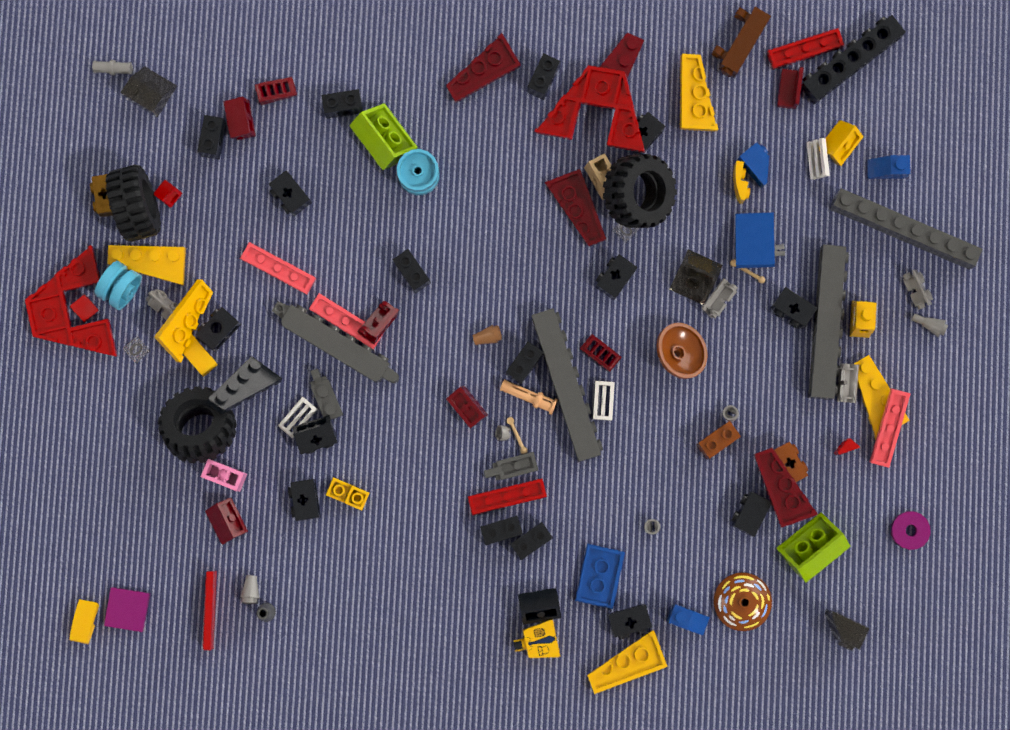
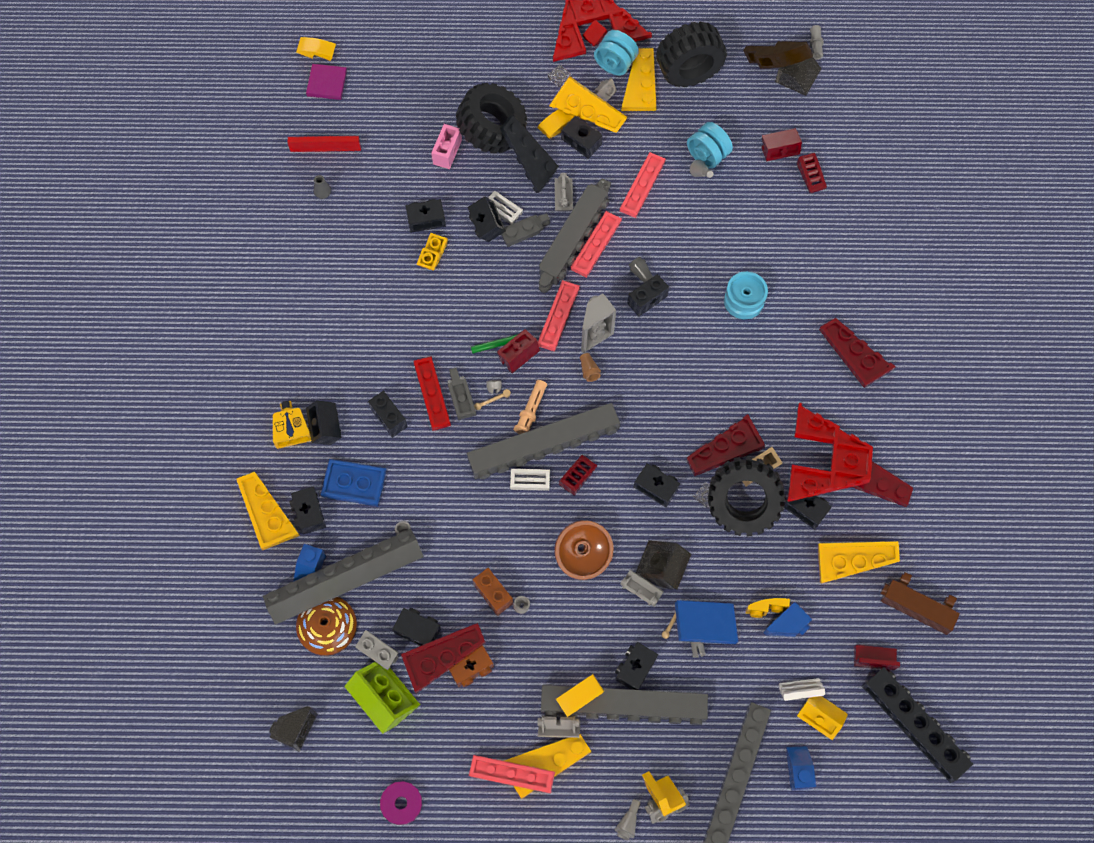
camera: 85 degrees right, 15 degrees down
(138, 108) = (780, 55): none -> dark brown slope
(167, 193) = (704, 90): red slope -> none
(212, 137) = (760, 121): black brick -> none
(226, 520) = (406, 154): dark red panel -> none
(241, 193) = (710, 144): none -> medium azure wheel
(250, 590) = (342, 175): light grey cone -> none
(266, 206) = (699, 169): none -> light grey cone
(285, 183) = (714, 189): black brick -> none
(285, 352) = (563, 193): none -> light grey hinge
(342, 103) = (805, 228): black brick -> none
(378, 322) = (595, 269): dark red hinge -> none
(381, 276) = (640, 269): none -> dark grey cone
(382, 135) = (780, 264): lime slope -> none
(426, 364) = (558, 315): none -> coral tile
(446, 325) = (598, 322): none -> light grey slope
(455, 429) = (492, 344): none -> green bar
(501, 530) = (398, 385): black brick -> none
(524, 363) = (563, 400): black brick -> none
(543, 76) = (856, 407): black brick -> none
(700, 584) = (342, 576): none -> dark grey brick
(771, 552) = (377, 650): none -> light grey hinge
(805, 48) = (922, 674): red tile -> none
(825, 360) = (580, 695): none -> yellow slope
(846, 446) = (490, 727): red slope -> none
(862, 318) = (630, 740): yellow torso -> none
(910, 290) = (664, 793): none -> yellow panel

